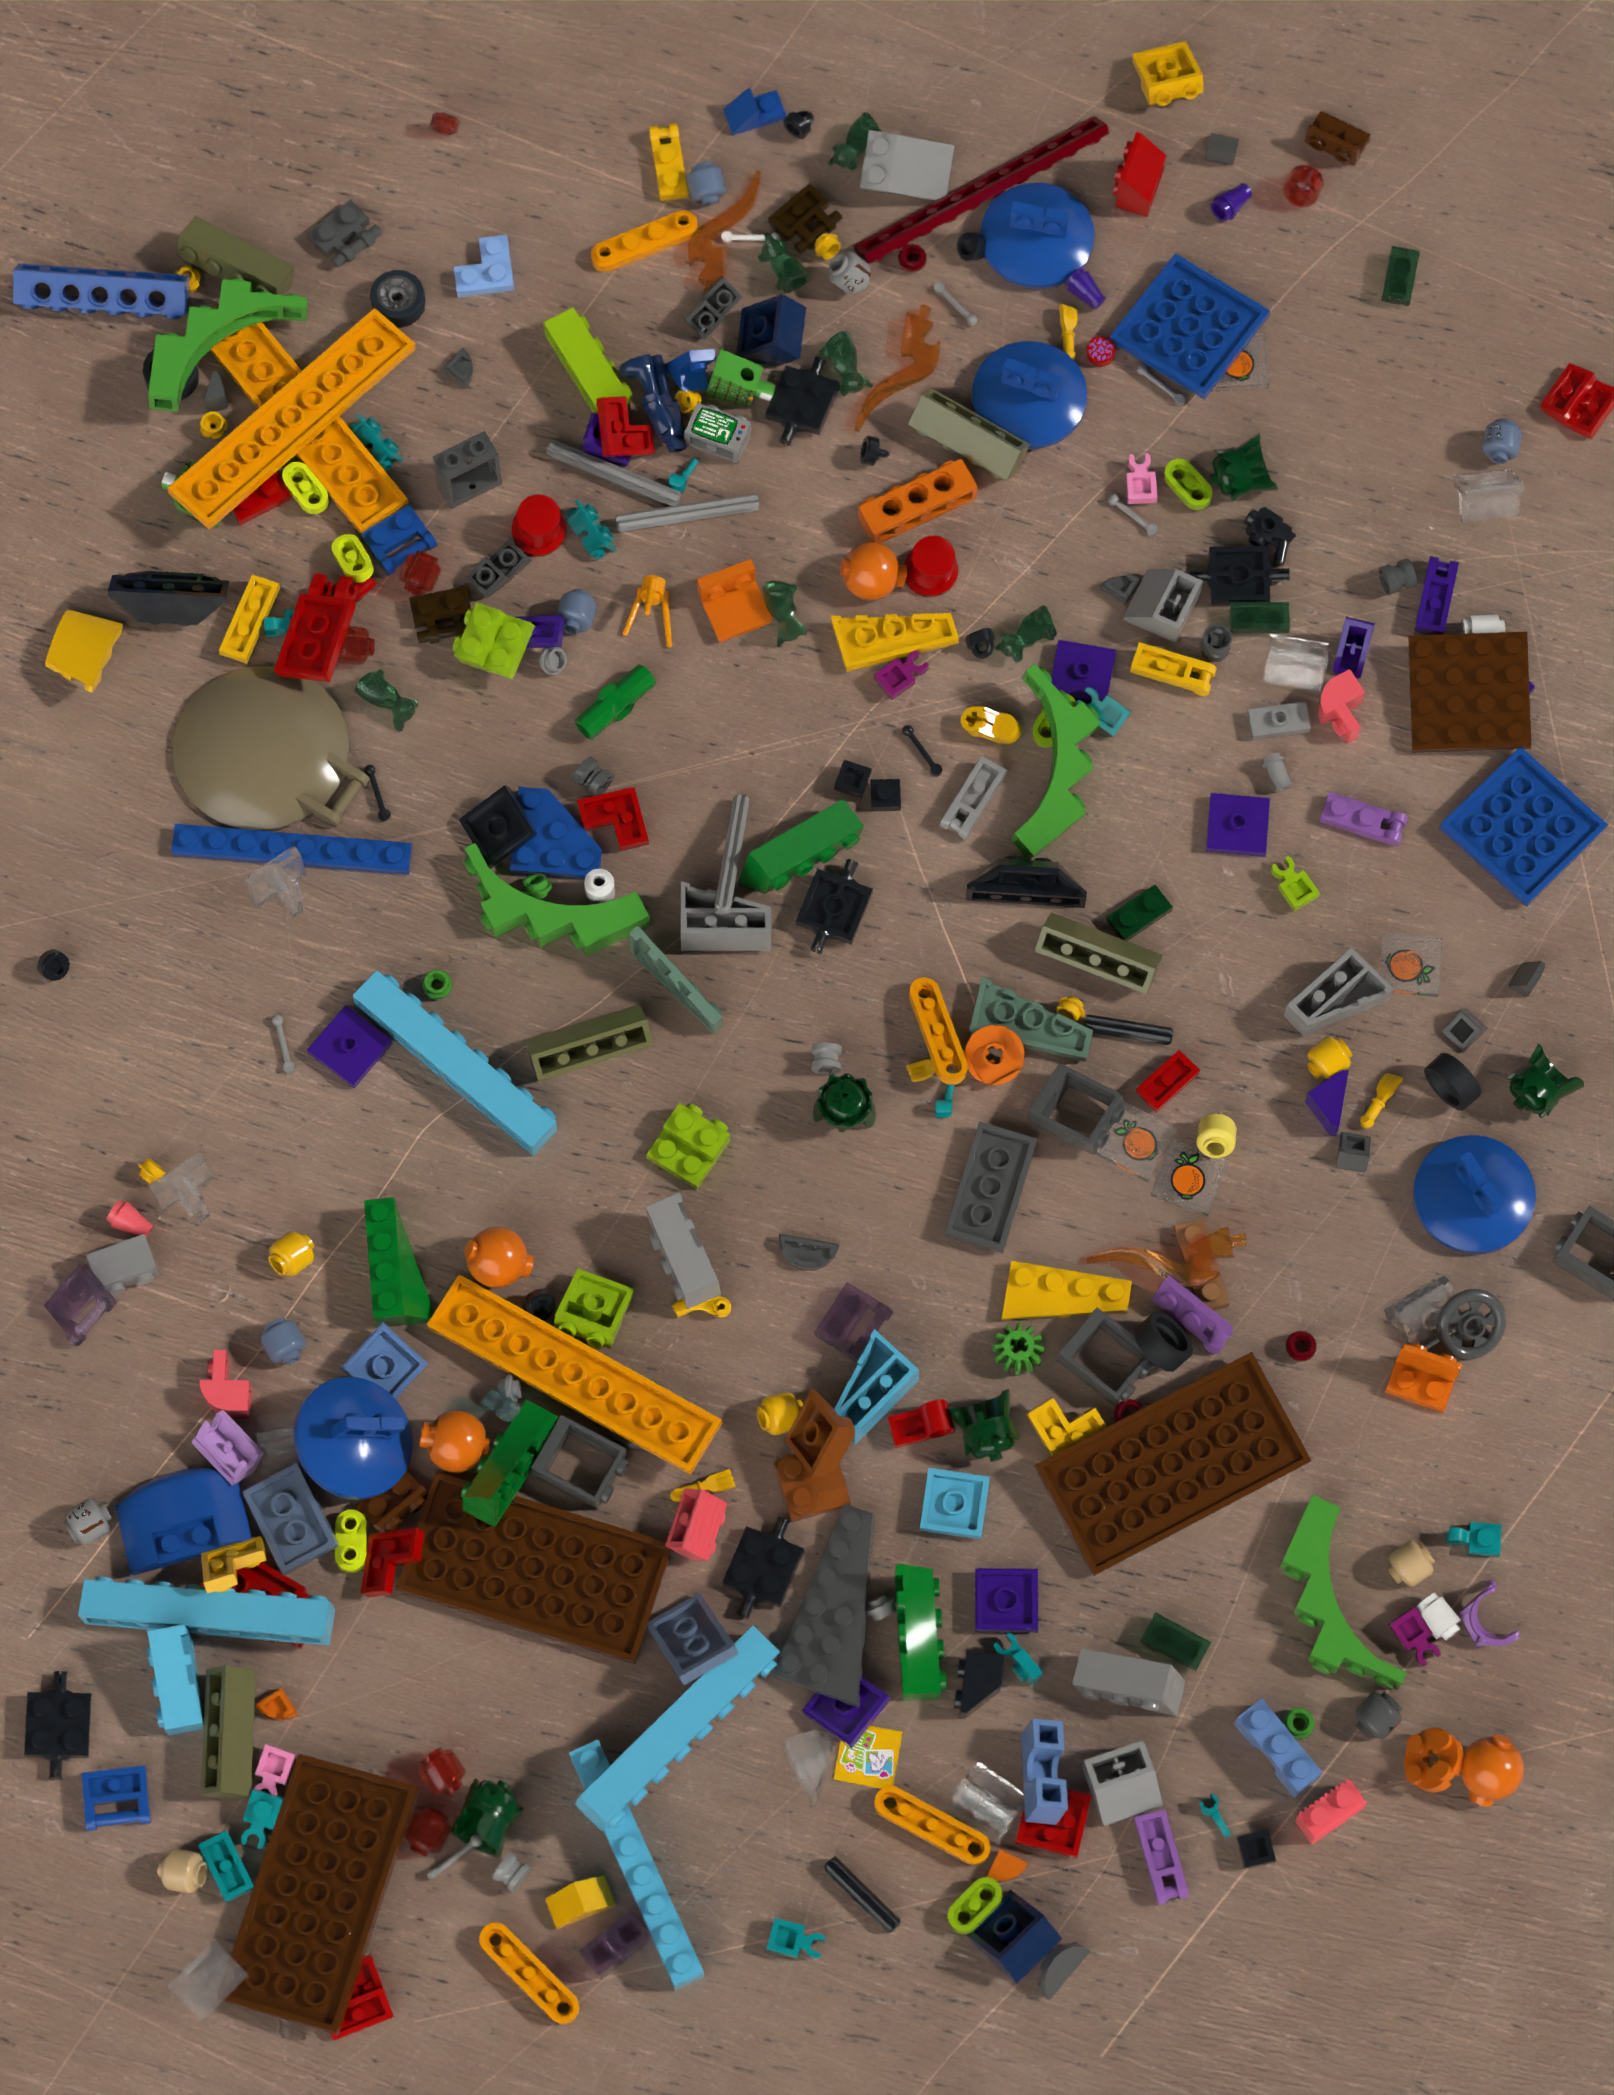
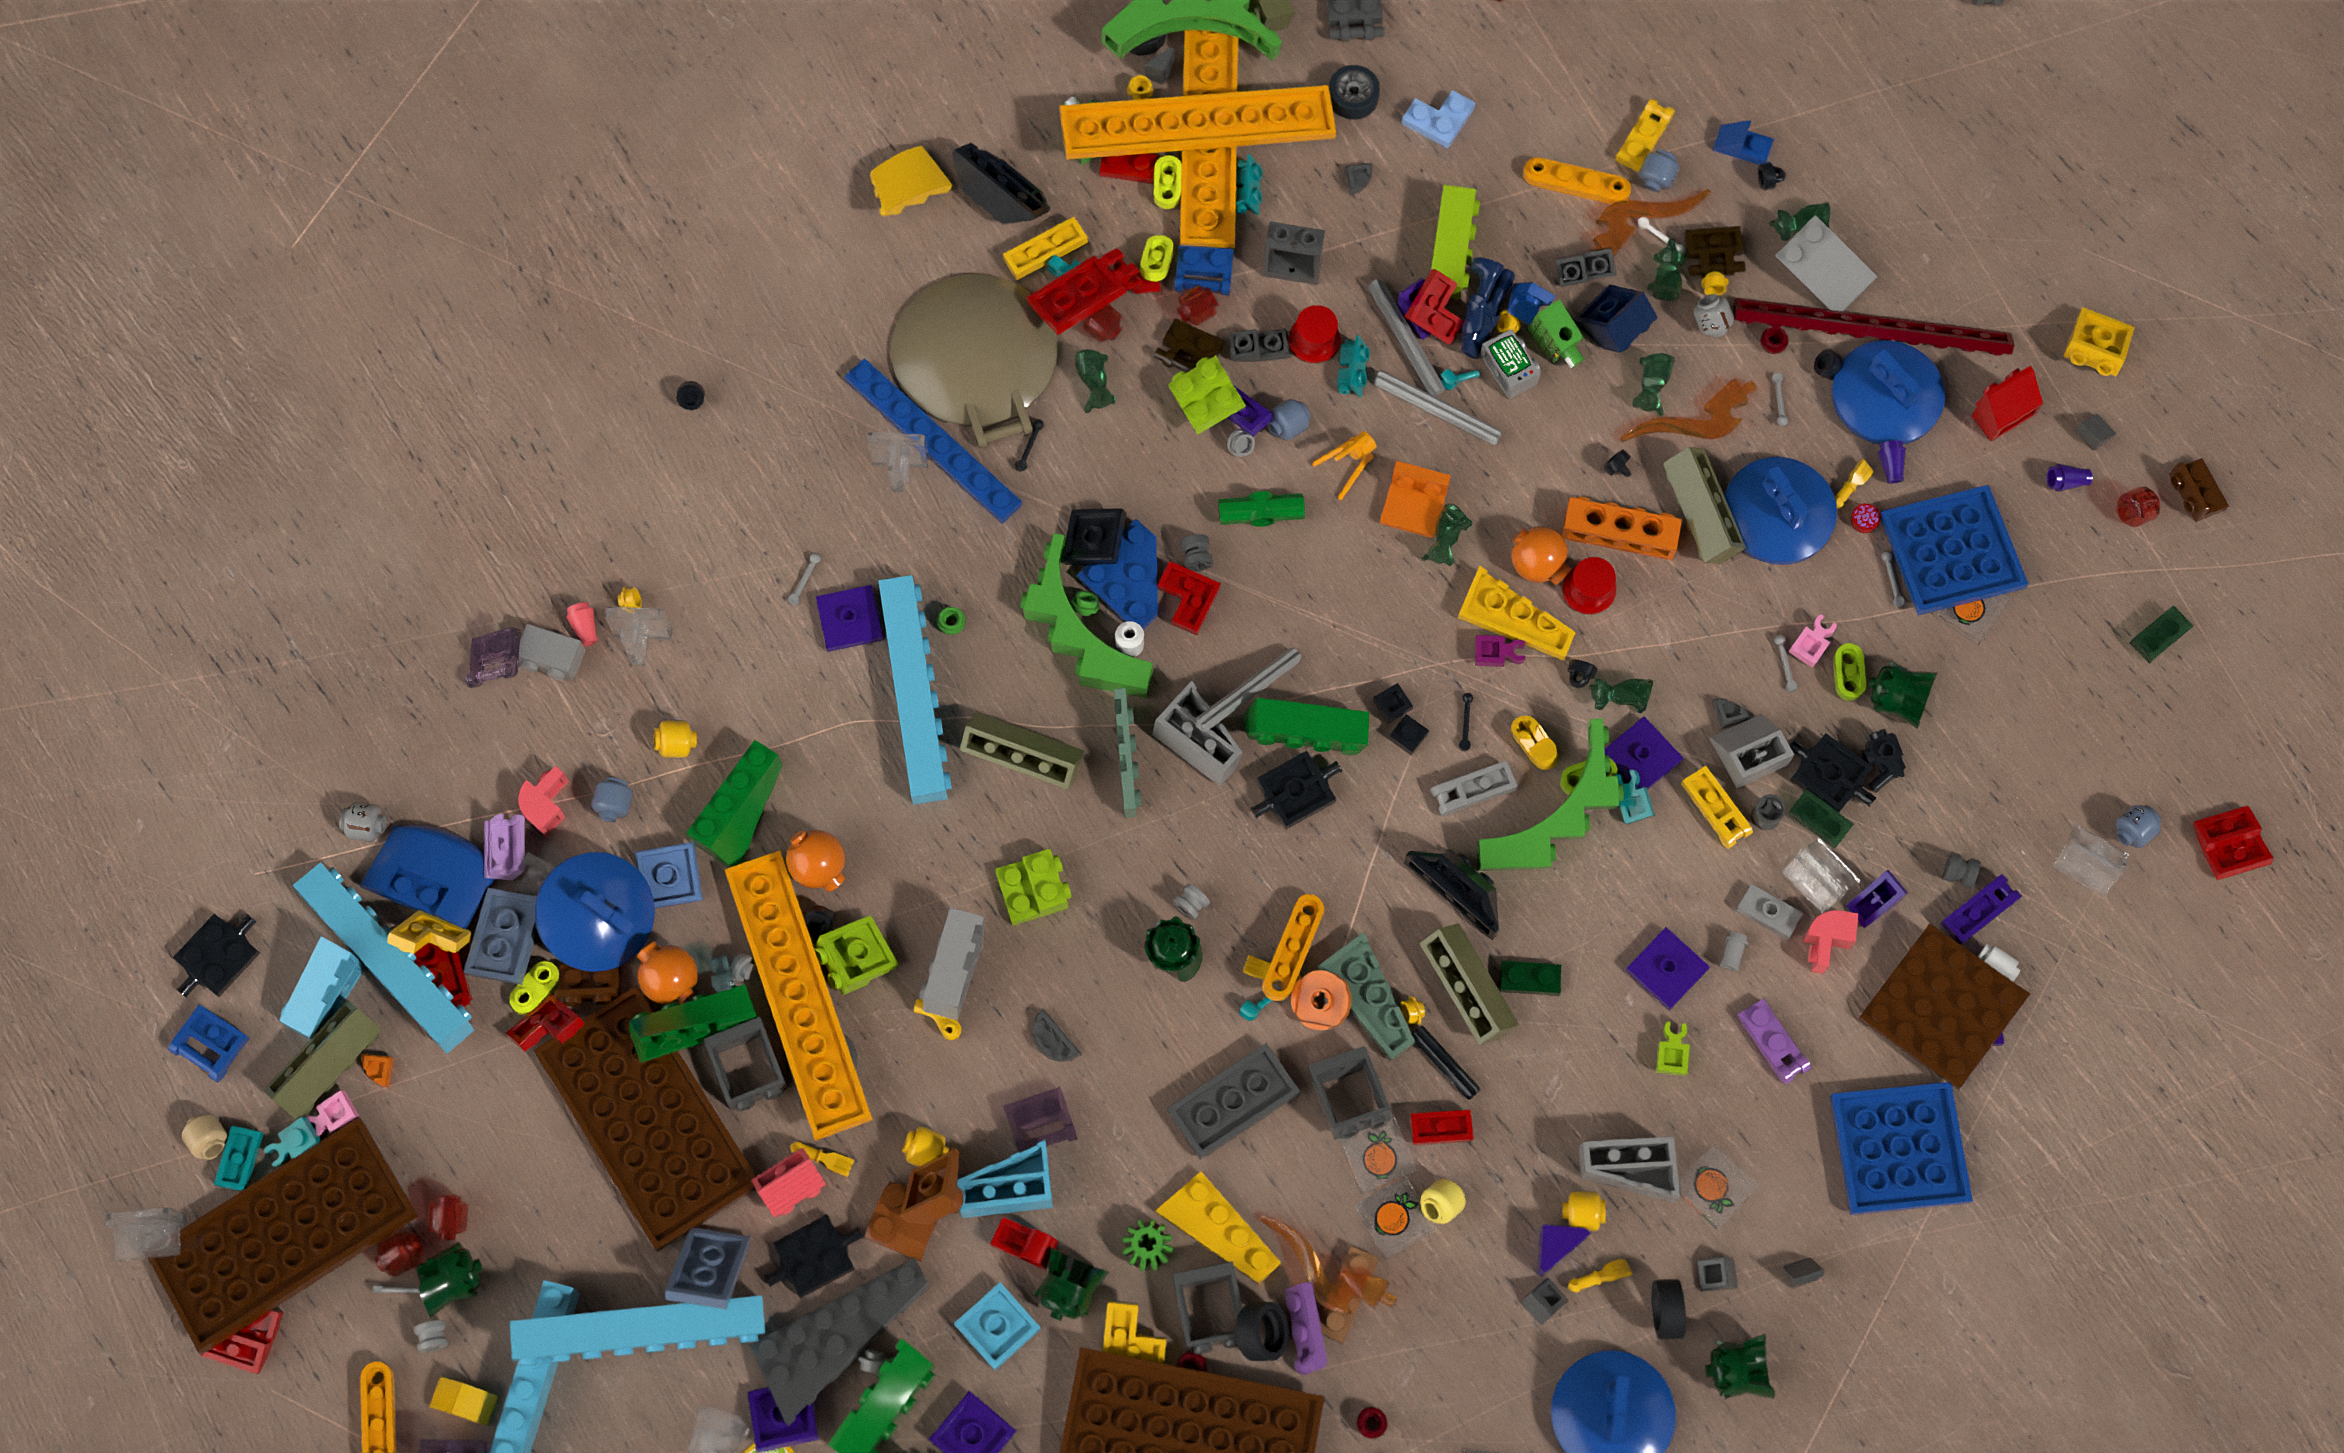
camera: 40 degrees right, 0 degrees up
(802, 400) = (1597, 386): black plate -> none

